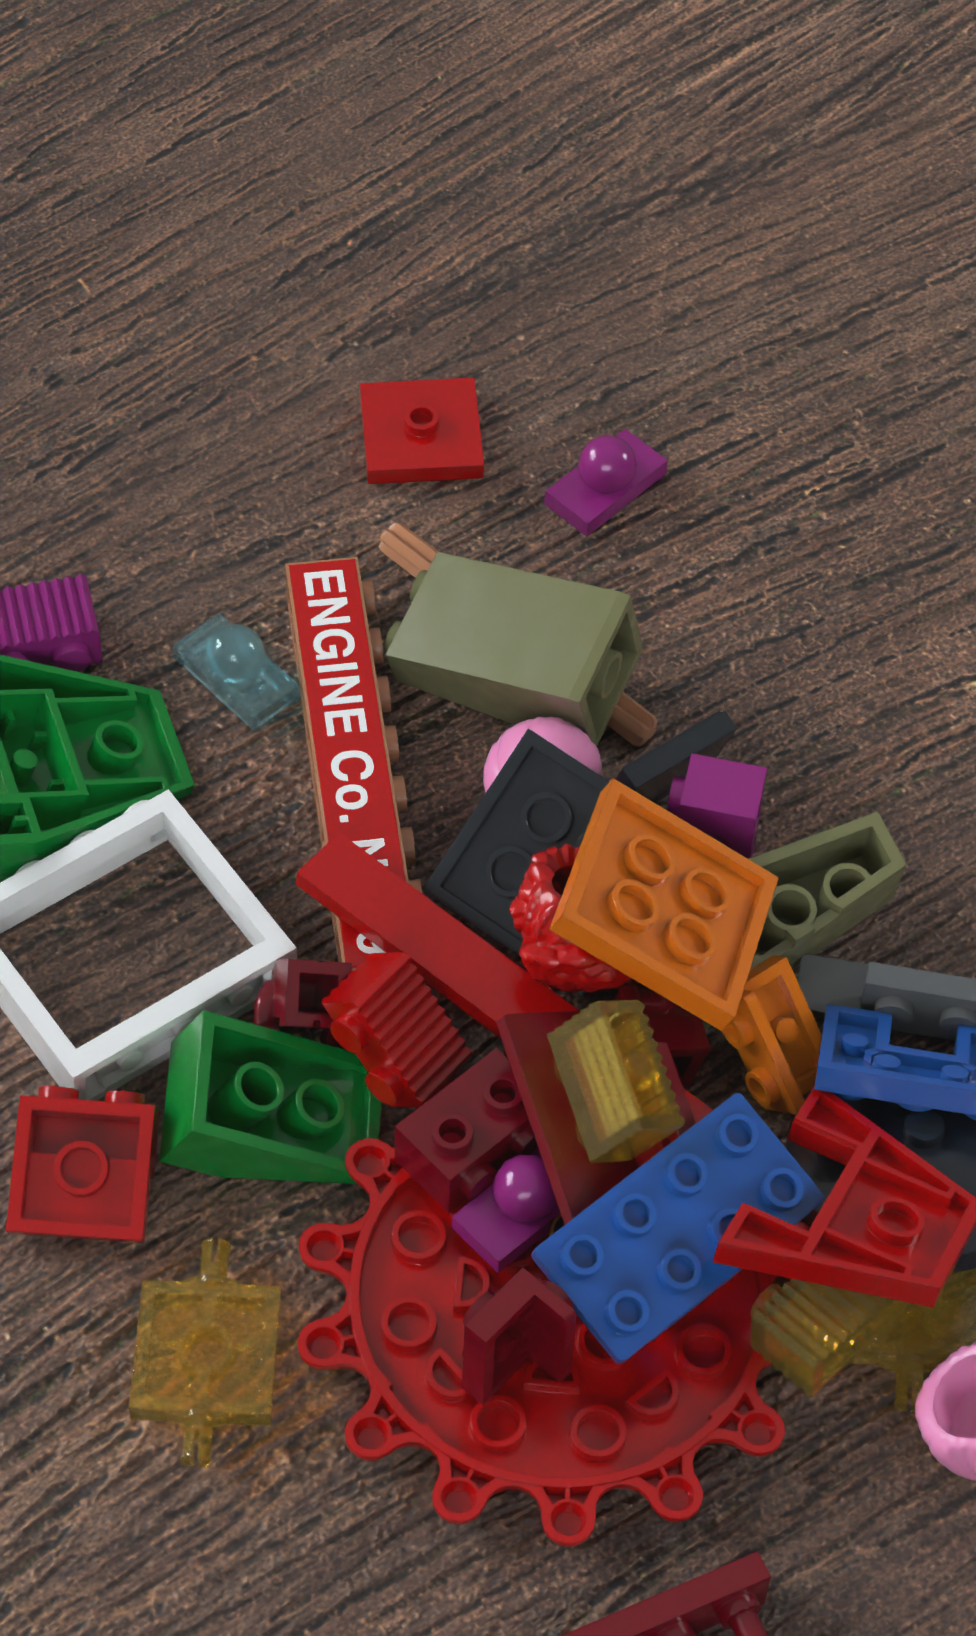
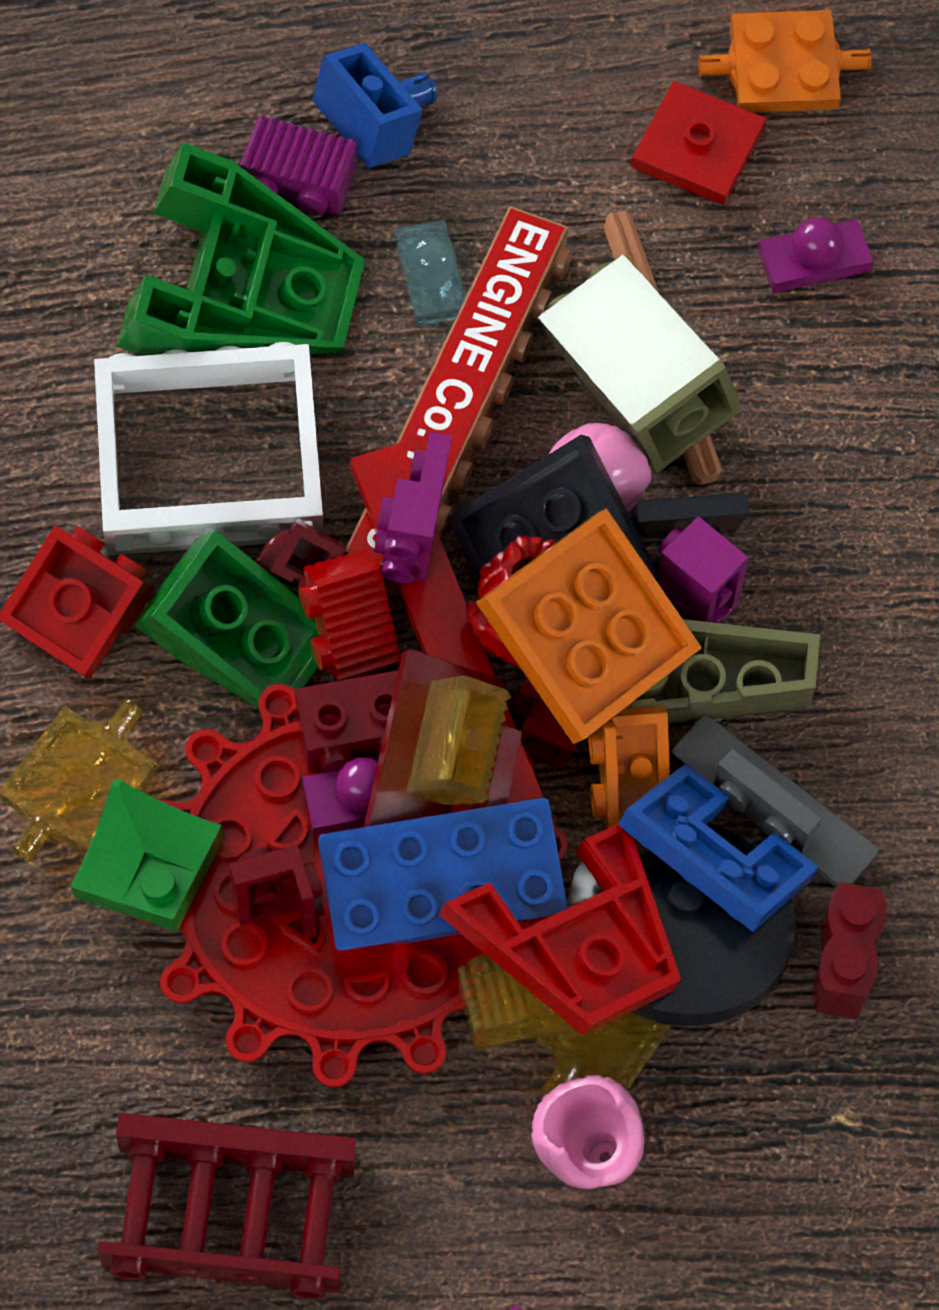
camera: 30 degrees right, 10 degrees up
(71, 532) = (371, 104): none -> blue brick
(340, 1387) = (146, 858): none -> green plate
(418, 881) = (410, 518): none -> magenta plate
(453, 320) = (784, 61): none -> orange plate

